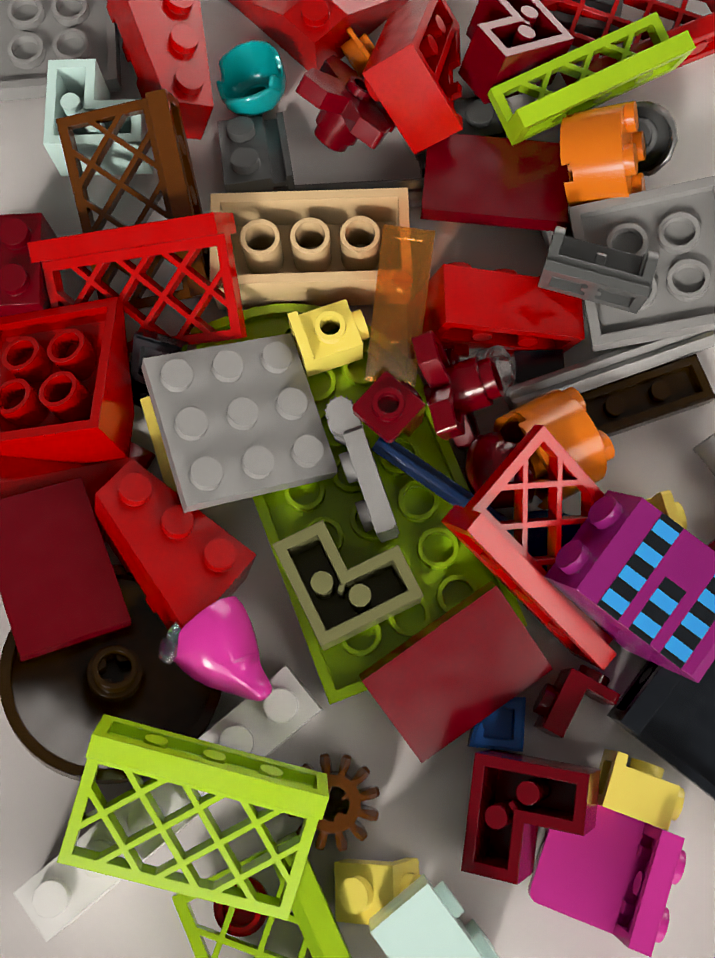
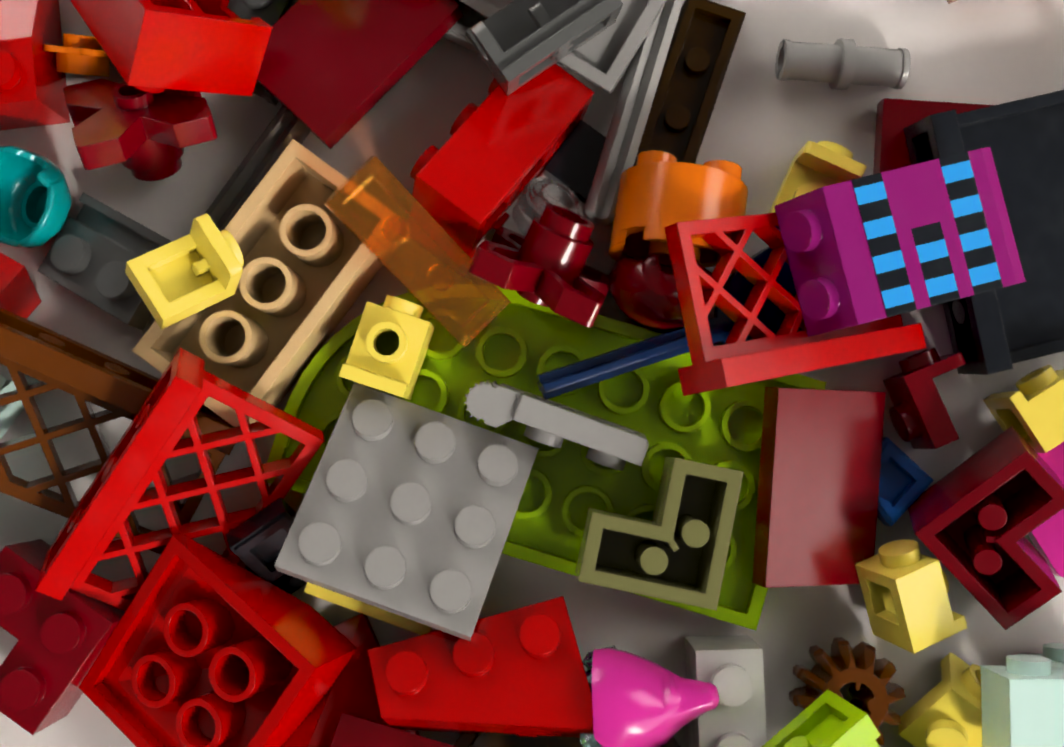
camera: 50 degrees left, 10 degrees up
(280, 184) = (187, 272): none -> light yellow bracket
(390, 408) = (521, 350): dark red bracket -> none
(431, 789) = (907, 597): none -> light yellow brick

